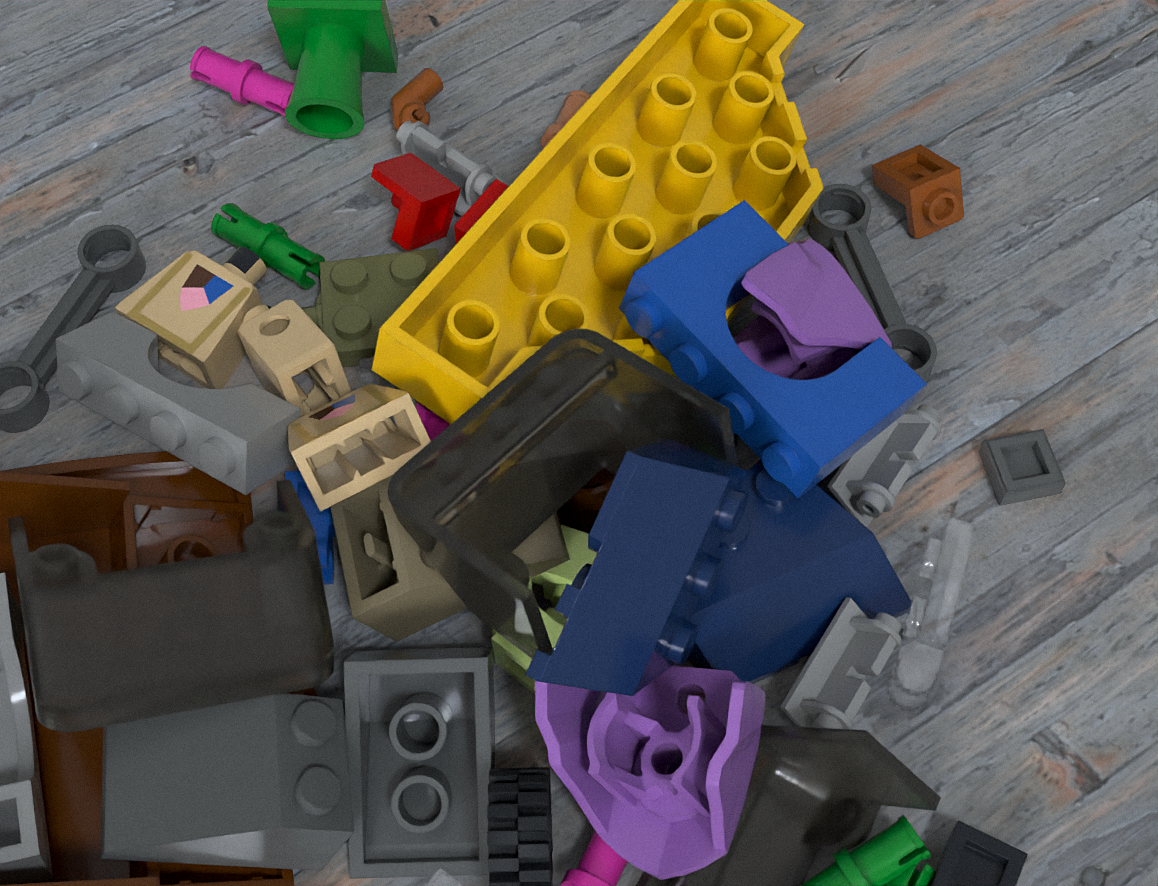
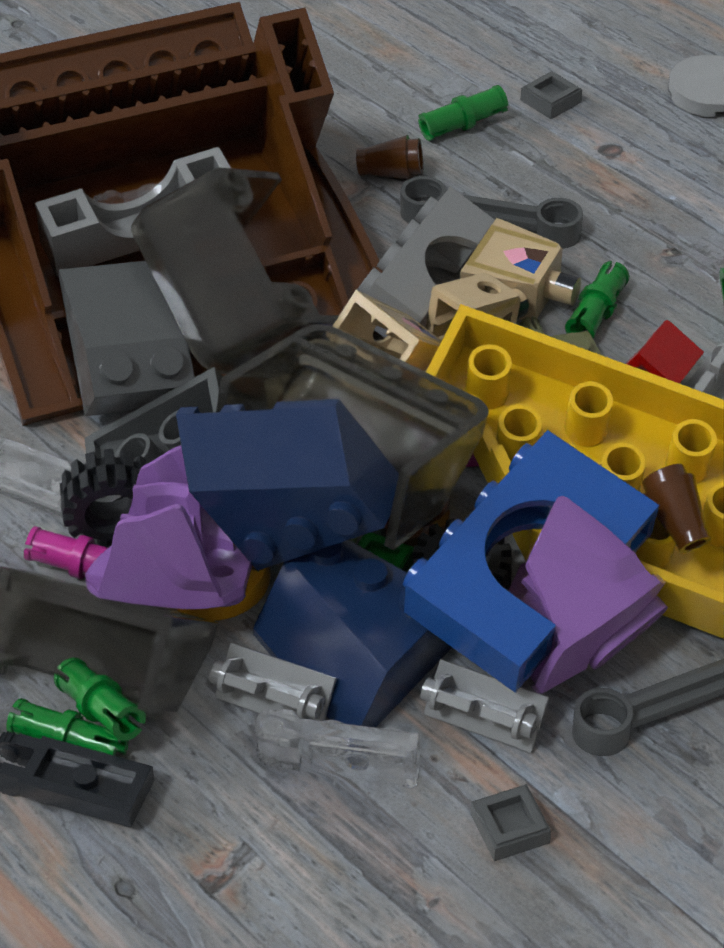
camera: 80 degrees right, 15 degrees down
(706, 193) = (679, 506): none -> reddish brown cone

